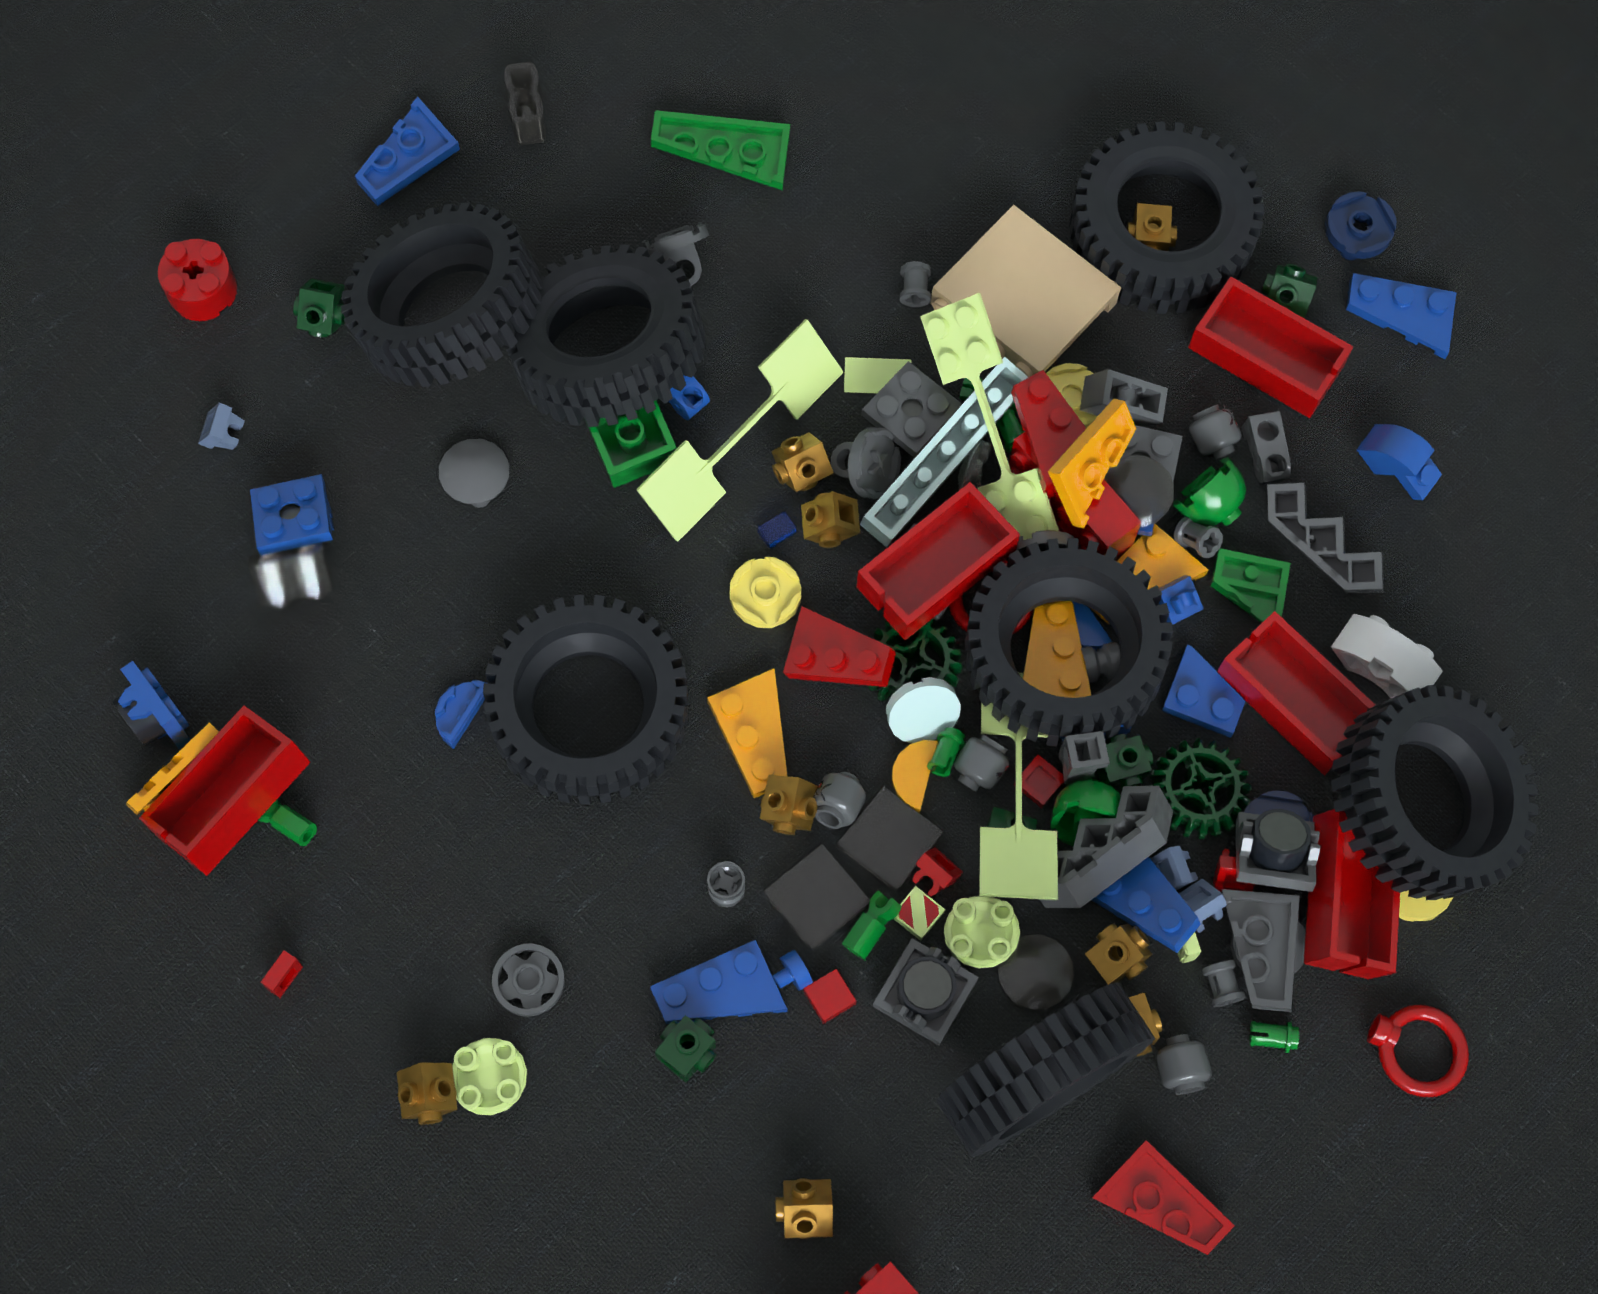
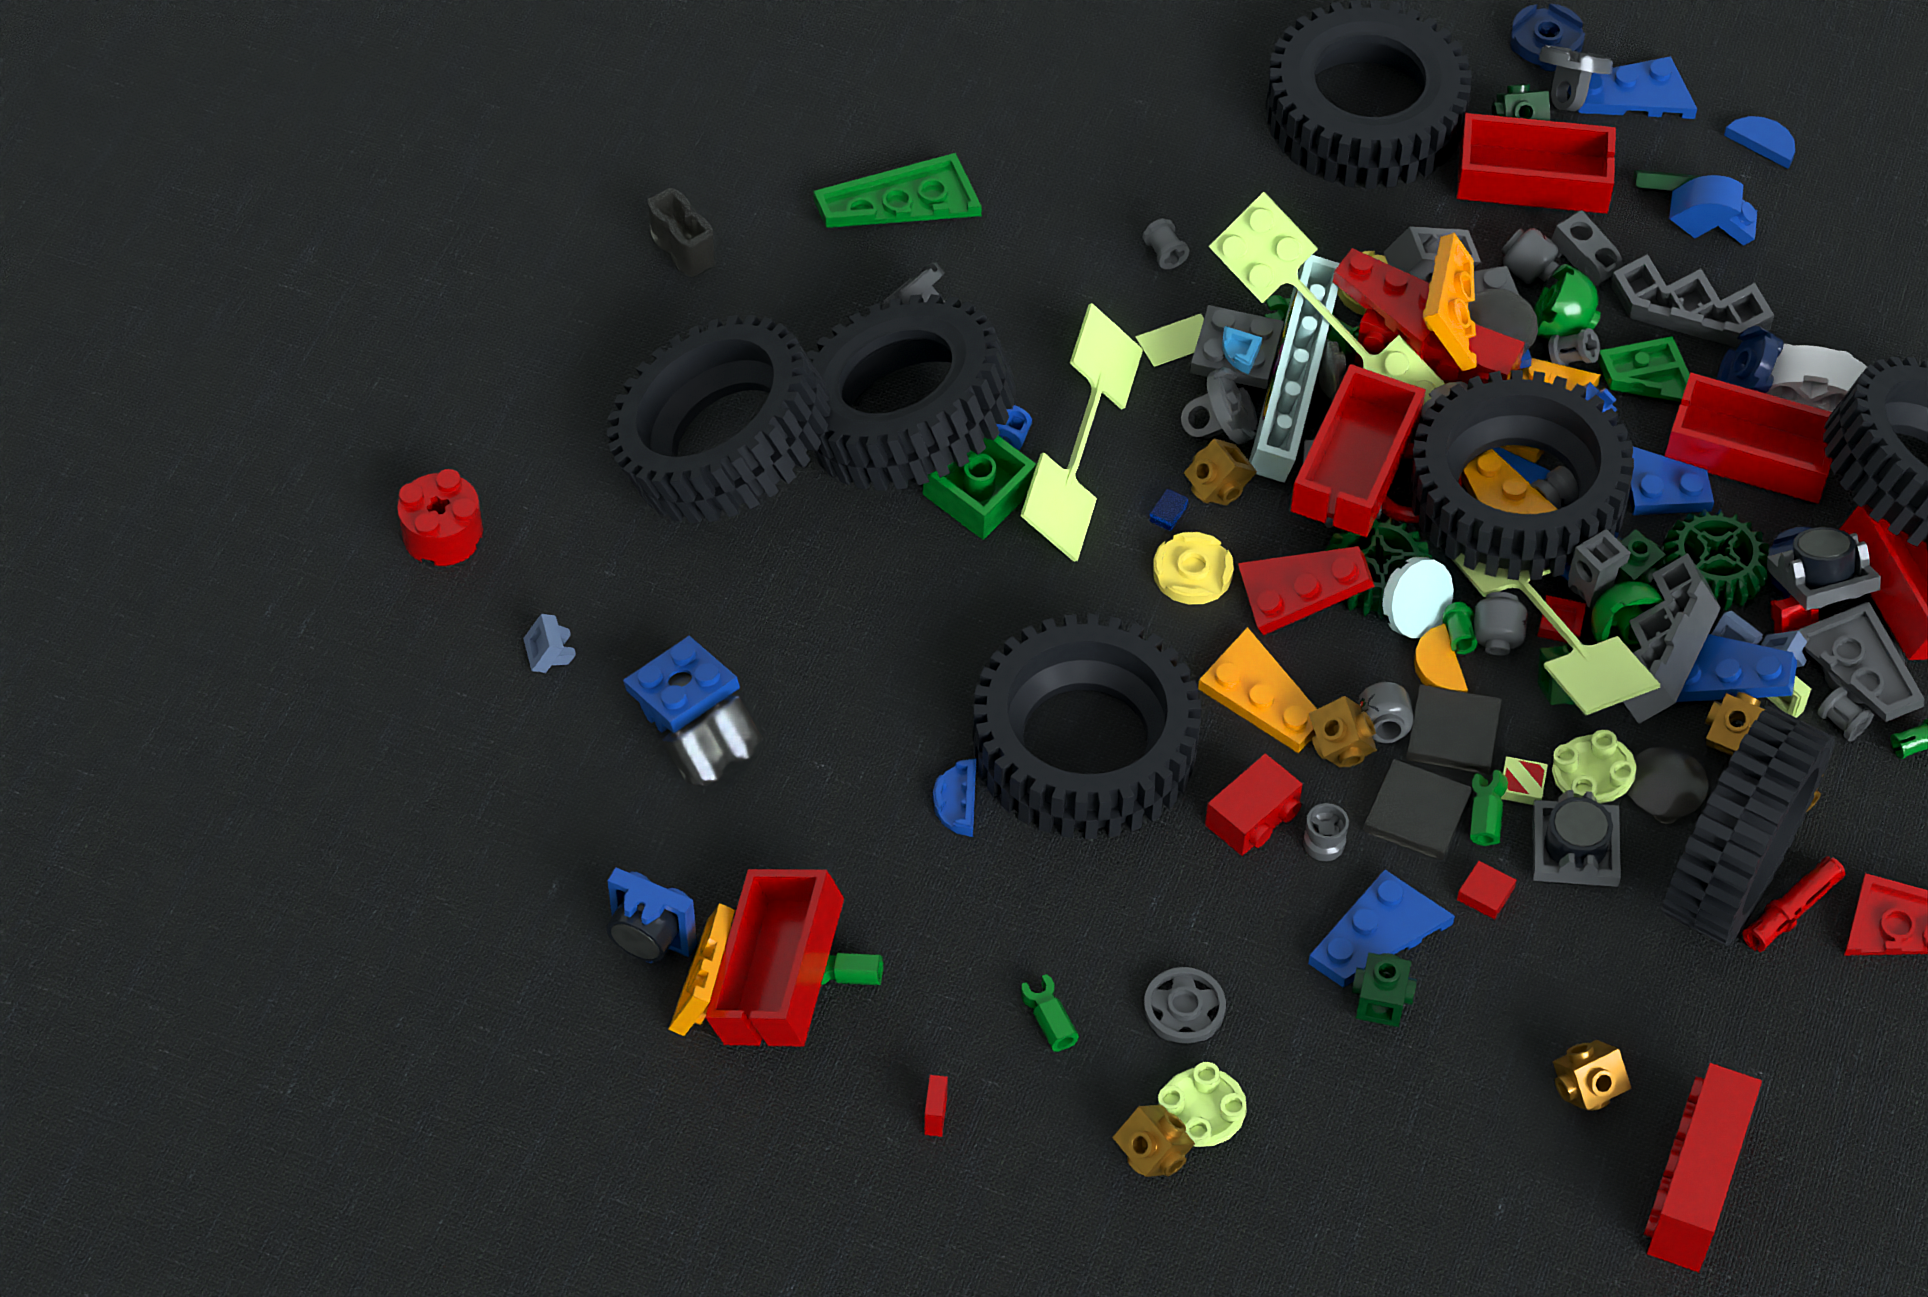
camera: 25 degrees left, 15 degrees down
(319, 307) = (582, 479): dark green brick -> none
(410, 151) = (583, 325): blue wing -> none
(418, 938) = (1050, 1015): none -> green bar
(474, 471) = (835, 580): dark grey dish -> none
(683, 832) = (1254, 805): none -> red brick
(793, 971) = (1441, 878): blue tile -> none
(801, 462) = (1159, 435): pearl gold brick -> none
(906, 416) = (1240, 348): none -> dark azure tile
(938, 868) = (1520, 732): red tile -> none
(1031, 288) = (1309, 188): tan panel -> none
(1065, 1137) = (1783, 913): none -> red pin
(1153, 226) = (1362, 99): pearl gold brick -> none
(1183, 1065) = (1856, 797): dark grey head -> none
(1336, 623) = (1752, 361): none -> dark blue plate
(1355, 273) = (1574, 70): none -> dark grey tile
(1379, 411) = (1660, 180): none -> dark green tile
(1493, 406) = (1763, 137): none -> blue tile

